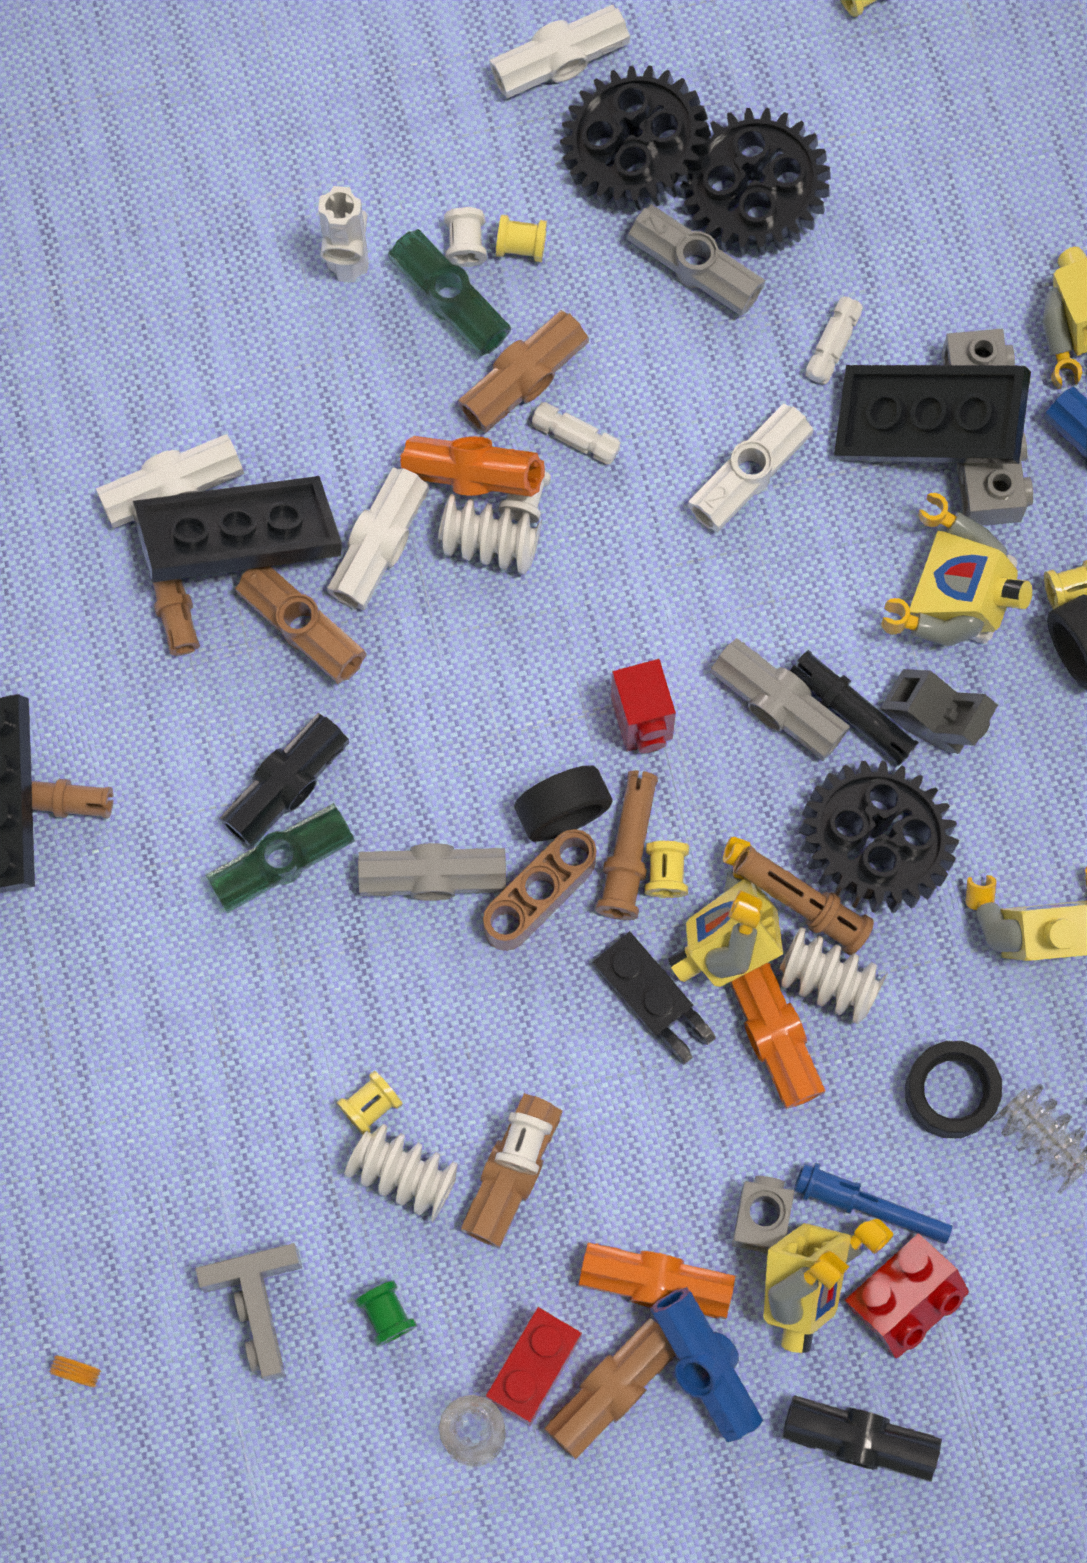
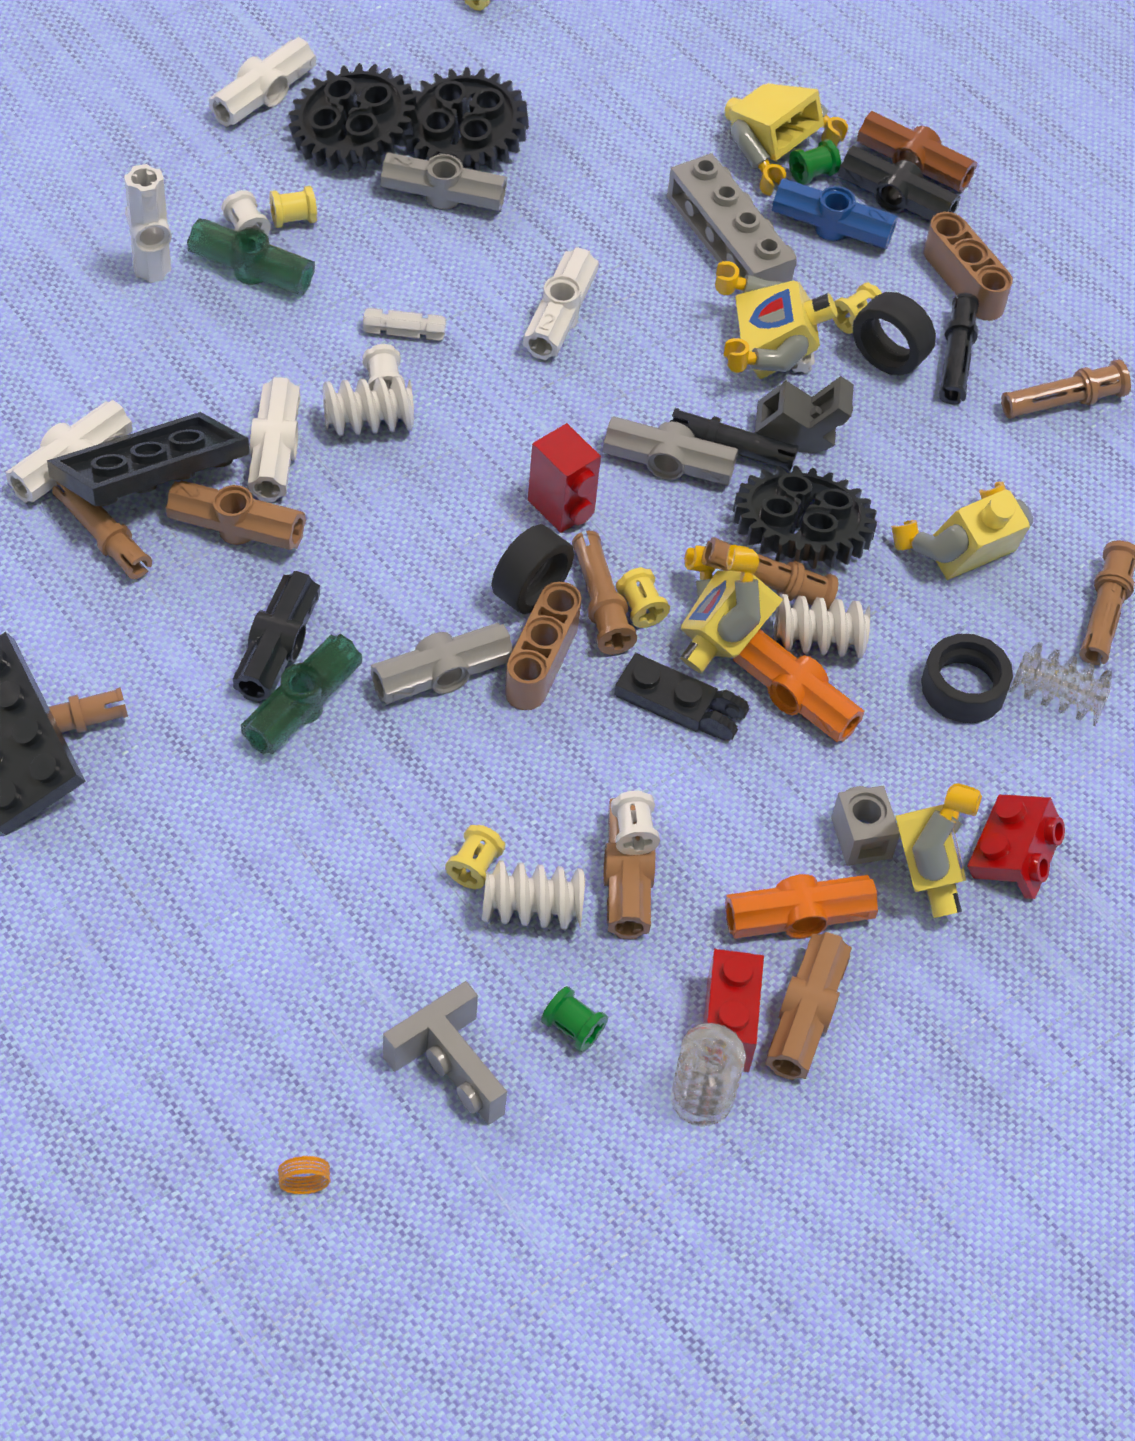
camera: 30 degrees left, 20 degrees down
(473, 465) = (336, 354): orange piece -> none
(523, 371) = (339, 292): medium nougat piece -> none
(706, 1364) = (906, 968): blue piece -> none
(834, 340) = (580, 208): white axle -> none
(847, 1196) = (926, 786): blue pin -> none
(862, 1438) = (1043, 965): black piece -> none
(933, 413) = (689, 217): black plate -> none

